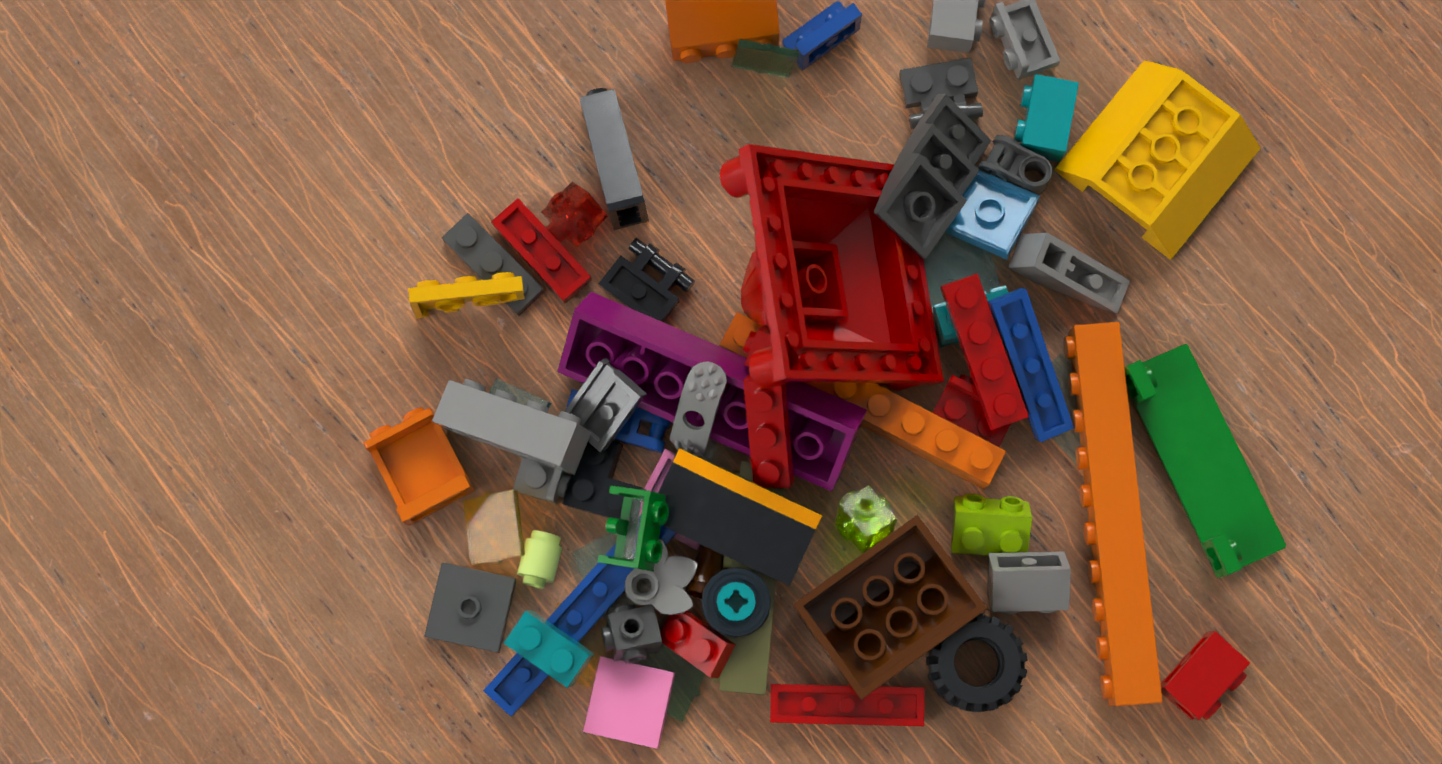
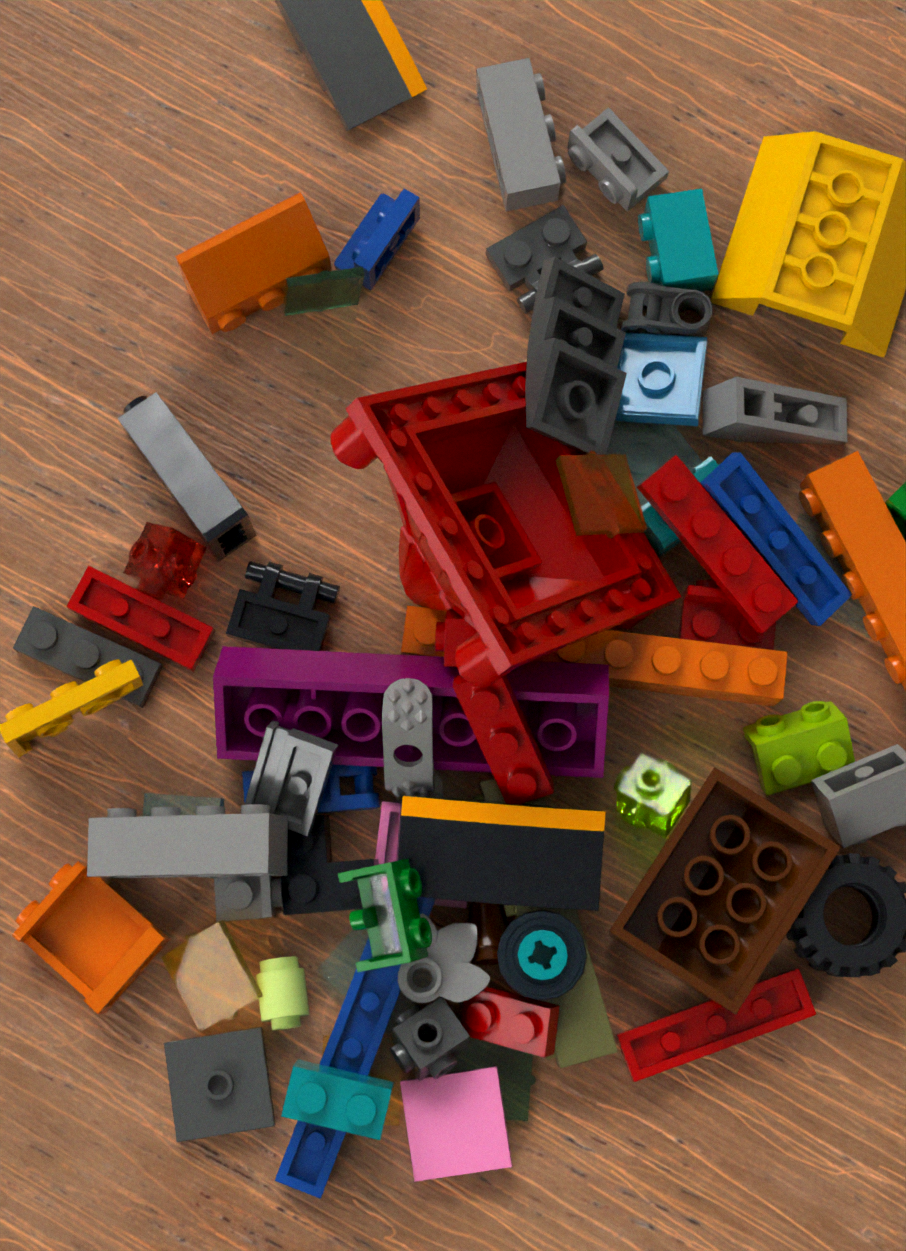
camera: 30 degrees left, 0 degrees up
(911, 282) = (601, 494): none -> clear orange piece

